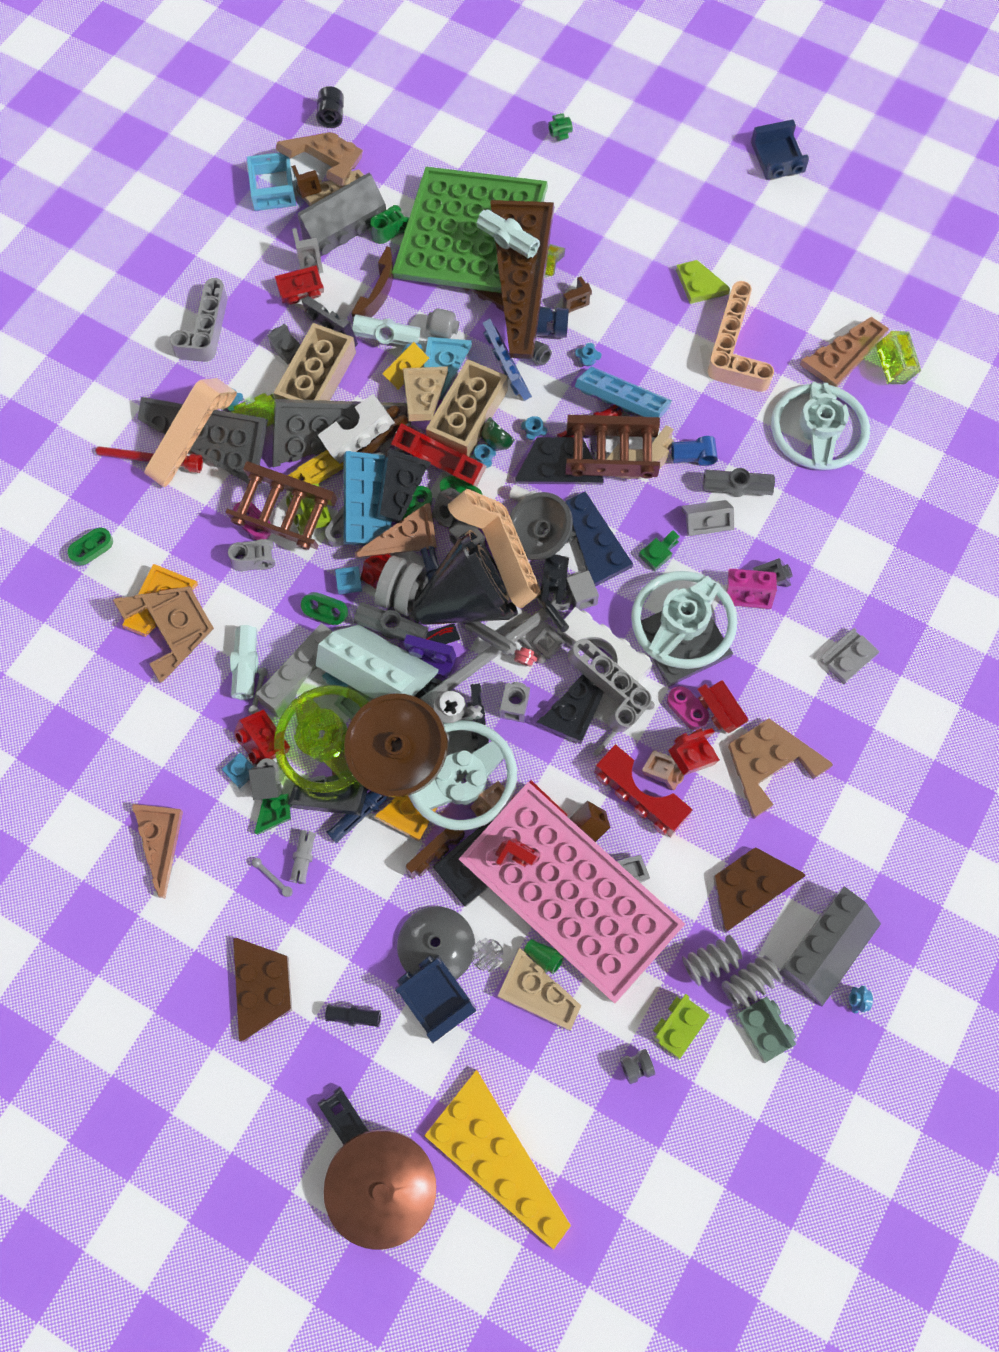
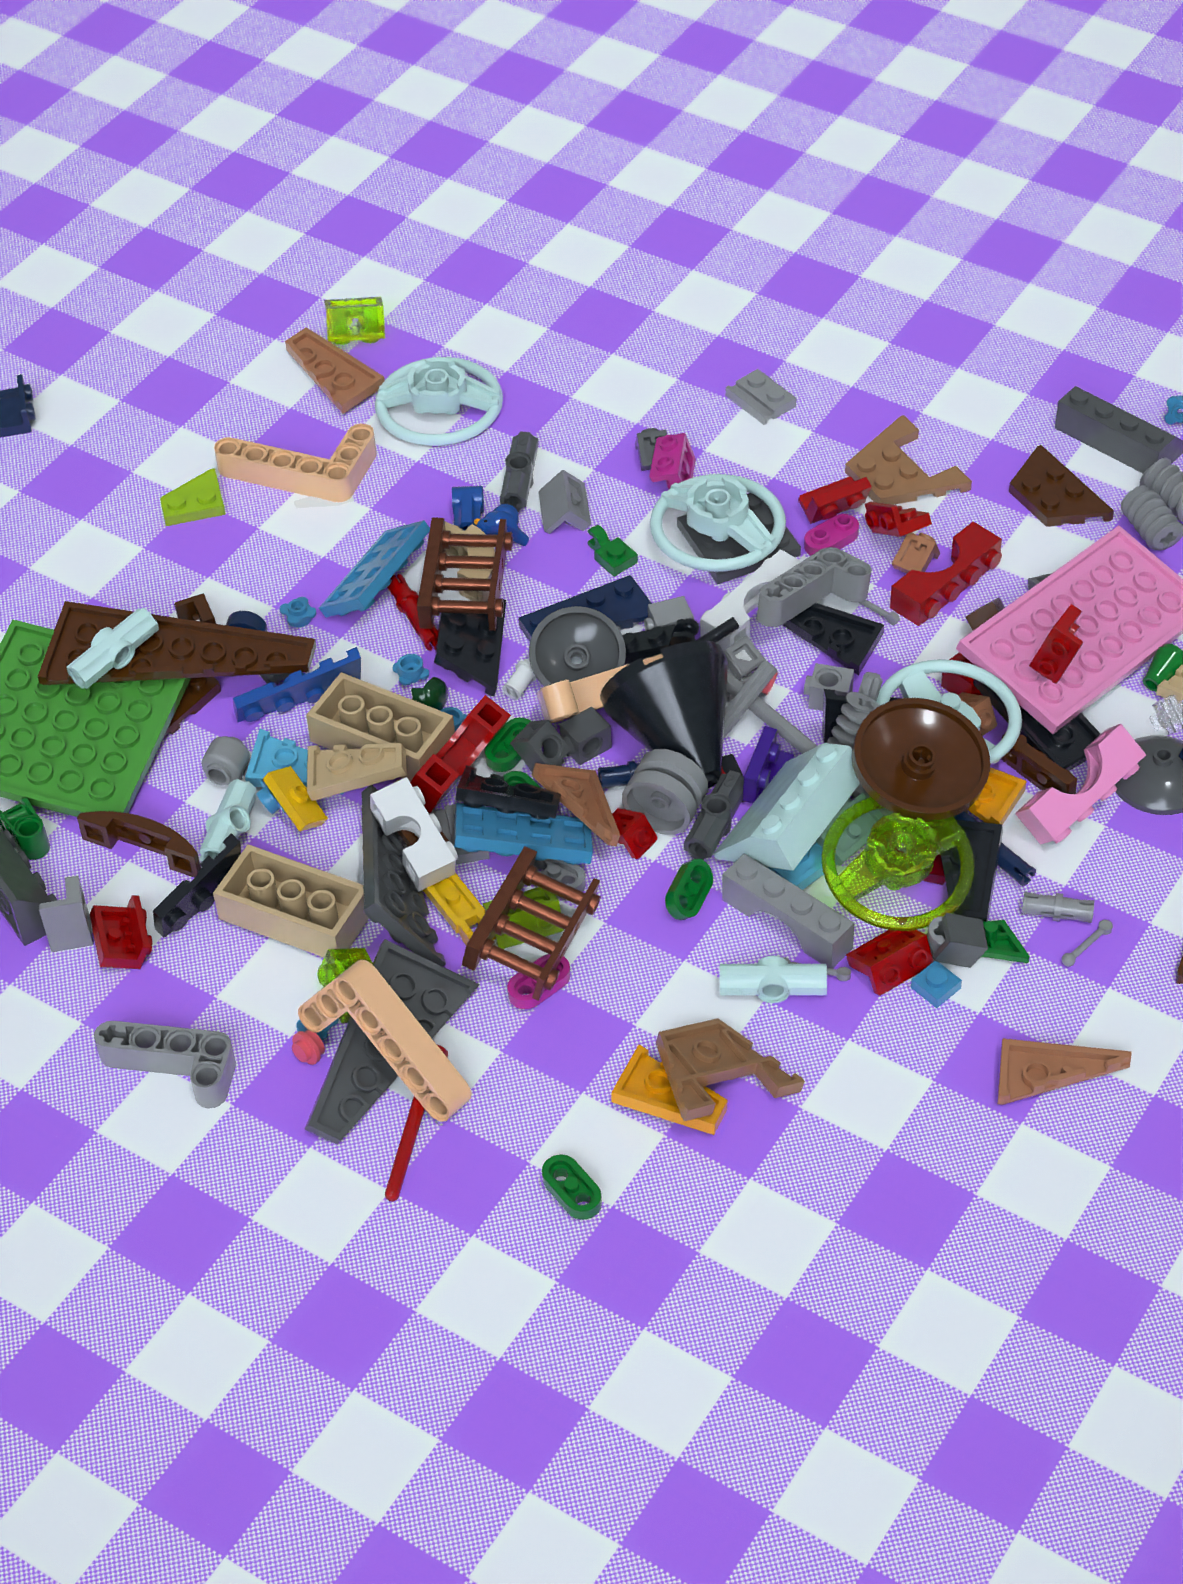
camera: 85 degrees left, 20 degrees down
(253, 555) = (600, 979): light grey piece -> none
(283, 343) = (227, 954): dark grey bracket -> none
(348, 580) = (644, 865): dark azure plate -> none
(382, 856) = (1108, 759): none -> bright pink arch
(678, 472) = (490, 523): none -> blue animal

